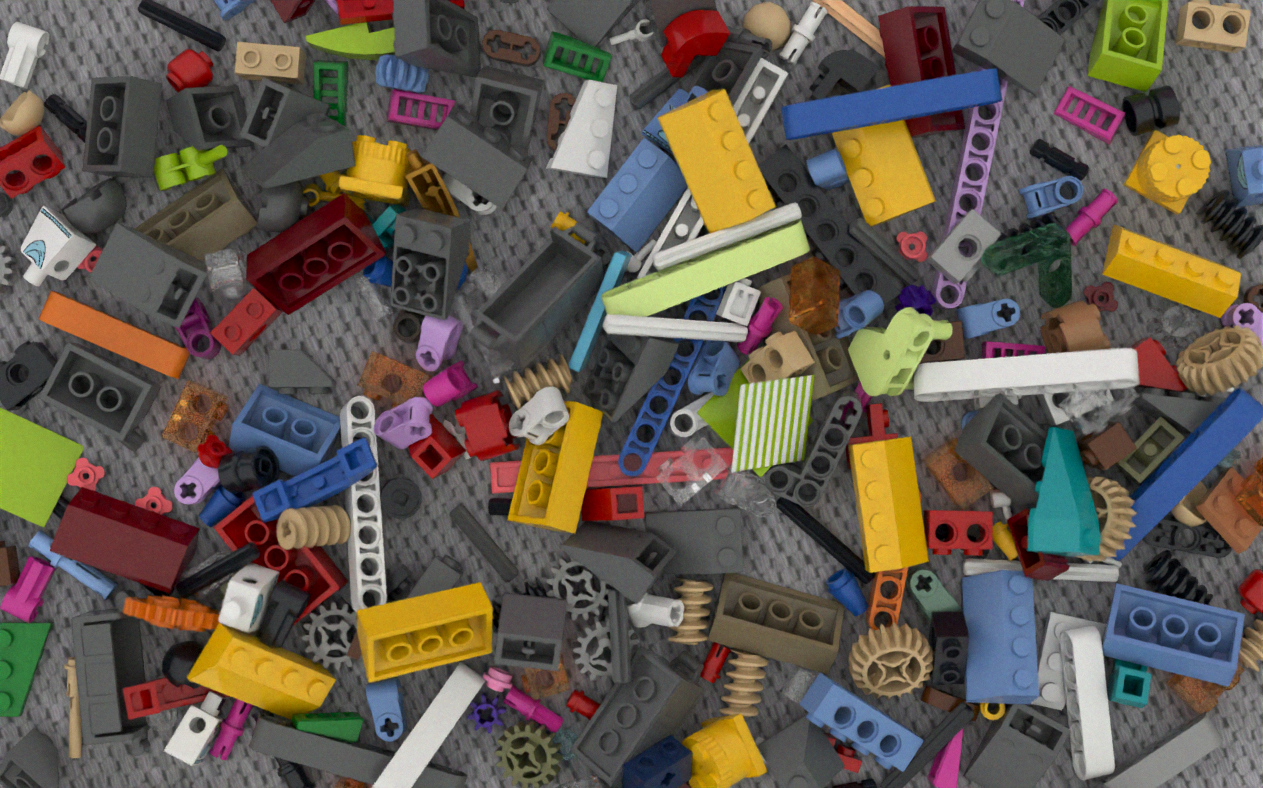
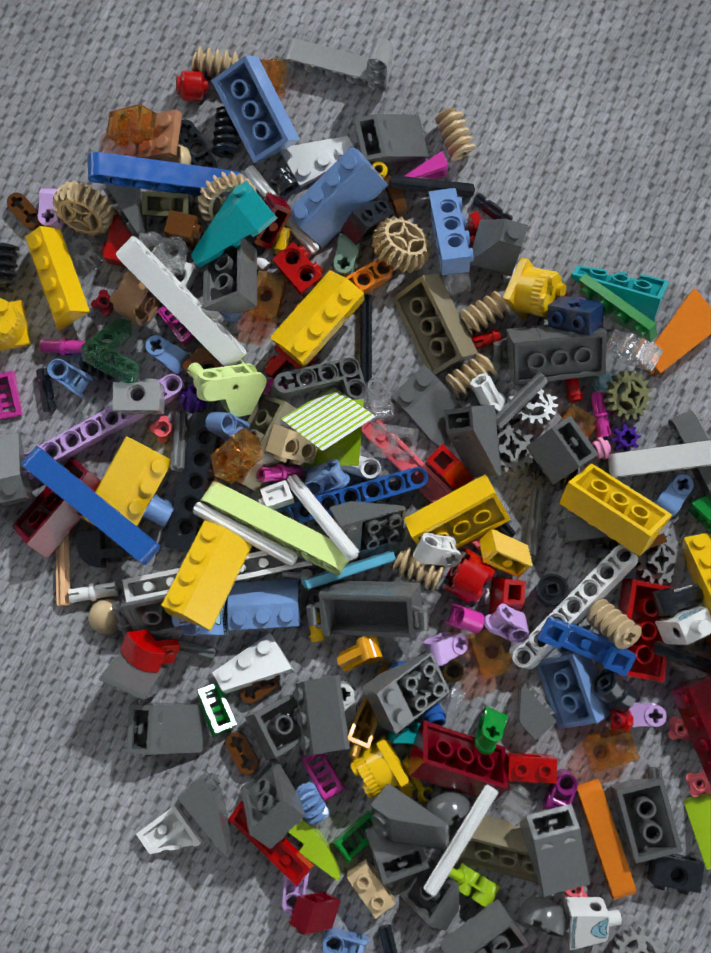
camera: 125 degrees left, 5 degrees down
(189, 70) = (416, 932): red head -> none
(220, 506) = (646, 689): blue cone -> none
(239, 189) = (460, 840): none -> white axle
(318, 313) = (490, 730): none -> green piece
(478, 483) = (505, 553): none -> yellow brick
(503, 254) = (364, 652): none -> light orange piece
(632, 34) = (175, 689): white hand -> none
(846, 590) = (384, 301): blue cone -> none
(1069, 598) = (283, 181): none -> black wheel
(1087, 702) = (331, 125): white beam -> none
(1129, 684) = (302, 110): teal brick -> none

